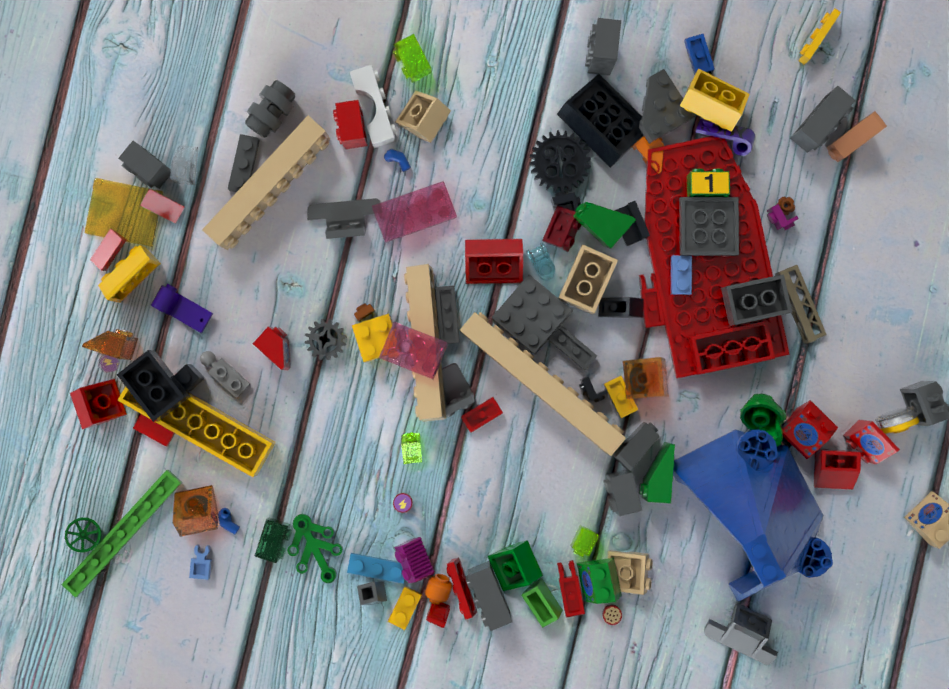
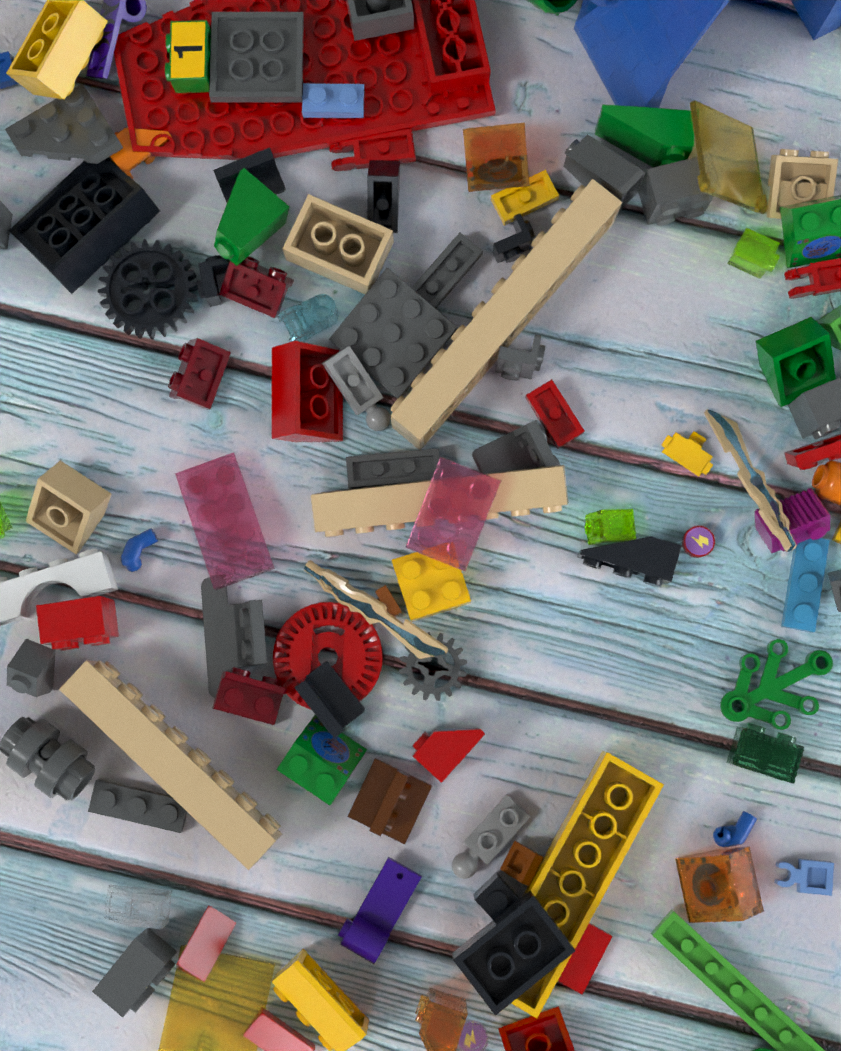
camera: 85 degrees left, 5 degrees down
(208, 392) = (521, 863): none -> dark orange plate
(245, 313) = (389, 801): none -> reddish brown bracket
(269, 273) = (320, 761): none -> green slope
(305, 276) = (329, 698): none -> black panel
(307, 228) = (248, 696): none -> dark red bracket
(321, 98) = (32, 669): none -> dark grey slope
(337, 258) = (299, 646): none -> red piece
(358, 304) = (375, 611): none -> tan sword
(392, 466) = (643, 557): none -> black slope
(440, 535) = (752, 478): none -> tan sword
(458, 497) = (688, 452): none -> yellow piece
(497, 292) = (357, 387): none -> light grey plate
(506, 194) = (198, 373): none -> dark red bracket
(511, 388) = (519, 363): none -> dark grey bracket
(642, 524) = (727, 158): none -> clear yellow piece

